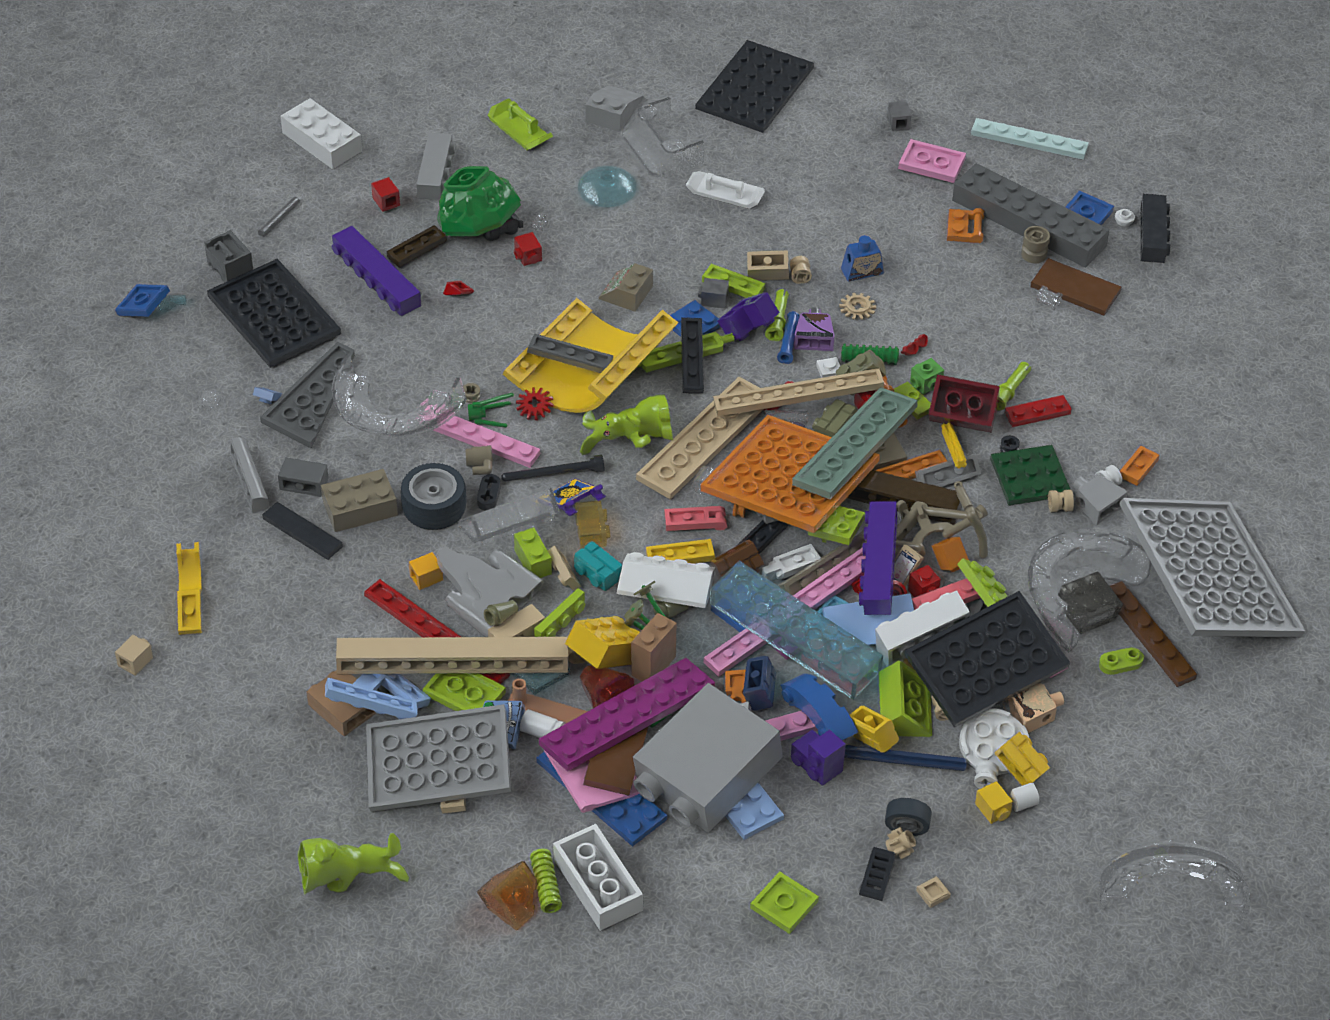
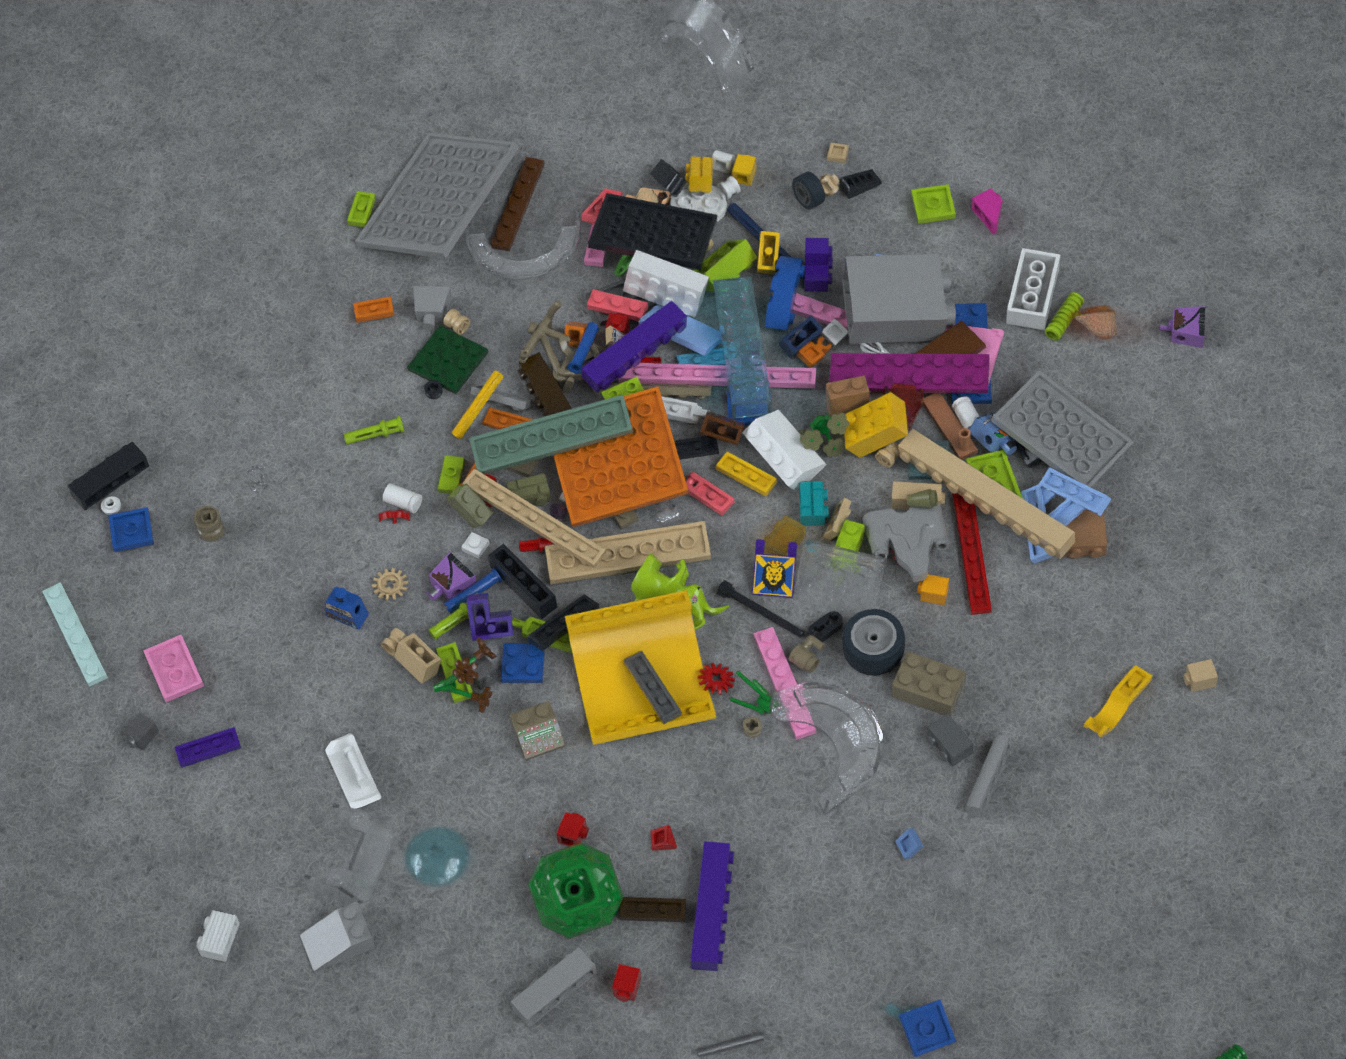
camera: 130 degrees left, 10 degrees up
(228, 256) = (821, 1007): dark grey piece -> none
(273, 312) = (830, 930): black plate -> none
(302, 530) = (989, 698): black tile -> none
(307, 402) = (875, 817): dark grey wing -> none
(324, 861) = (1203, 399): lime animal -> none
(417, 953) = (1186, 326): none -> medium lavender torso
(518, 124) = (436, 982): lime piece -> none
(561, 615) = (875, 484): lime plate -> none
(692, 58) = (218, 935): none -> white brick
(719, 289) = (465, 673): none -> reddish brown plant
(723, 932) = (988, 208): none -> dark pink slope
(754, 86) = (202, 867): black plate -> none
(756, 358) = (523, 581): none -> black brick
(843, 138) = (207, 747): none -> dark purple plate
(888, 355) = (436, 530): green piece -> none
(922, 353) = (402, 498): none -> white piece
(922, 533) = (583, 348): none -> blue pin
(924, 375) = (424, 476): bright green brick -> none
(958, 225) = (231, 595): orange plate -> none
(964, 403) = (432, 427): dark red brick -> none
(983, 581) = (584, 290): lime plate -> none
(1021, 208) = (175, 556): dark grey brick -> none
(1037, 411) = (380, 401): red plate -> none
(1048, 740) = (668, 177): none -> black beam
(1073, 677) = (591, 213): none -> coral plate
(1077, 286) = (223, 476): reddish brown tile -> none
(1090, 602) = (534, 236): clear smoke piece -> none
(1112, 474) = (405, 314): white wheel -> none
(1122, 661) = (556, 199): lime plate -> none
(1264, 531) = (361, 209): none -> lime plate

